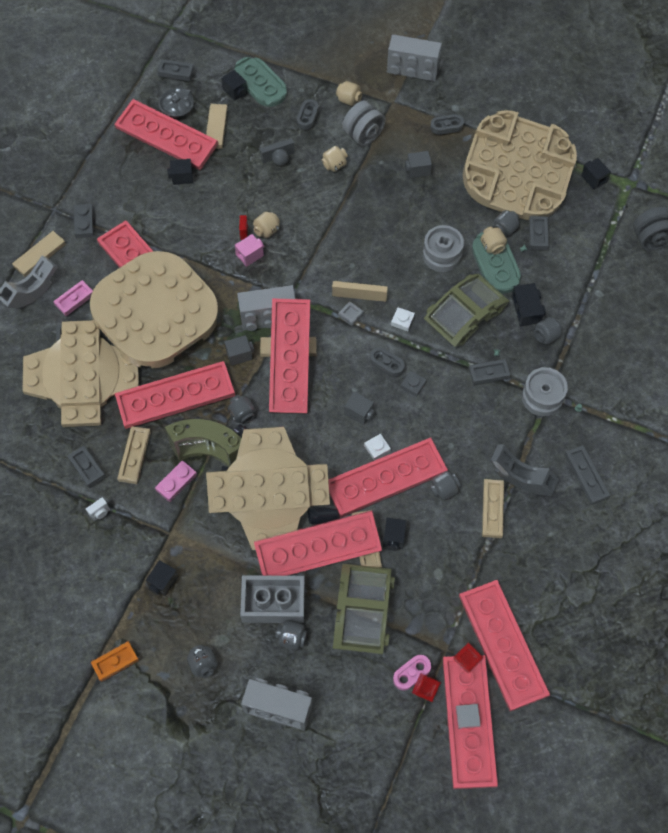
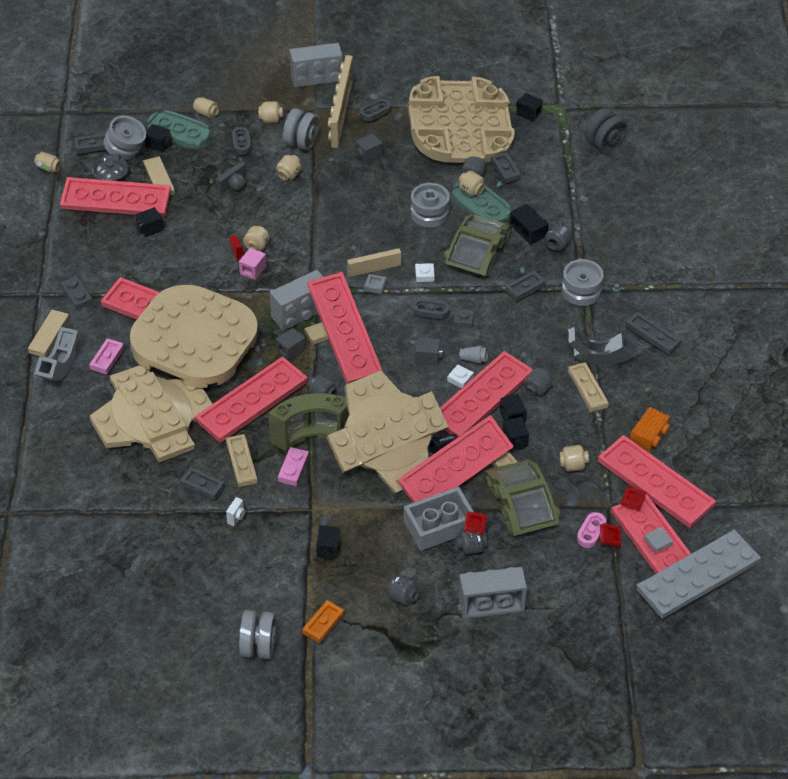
camera: 25 degrees left, 15 degrees down
(43, 654) = (257, 634): none -> light grey wheel
(127, 76) = (48, 162): none -> tan brick
(202, 75) = (125, 137): none -> light grey wheel
(294, 67) = (206, 107): none -> tan brick
(297, 624) = (475, 523): none -> red tile
(402, 429) = (474, 354): none -> light grey cone
(405, 505) = (512, 407): none -> black brick
(416, 105) = (340, 102): none -> tan plate
(435, 585) = (573, 458): none -> tan head
(488, 772) = (698, 574): none -> light grey plate
(526, 584) = (650, 429): none -> orange brick

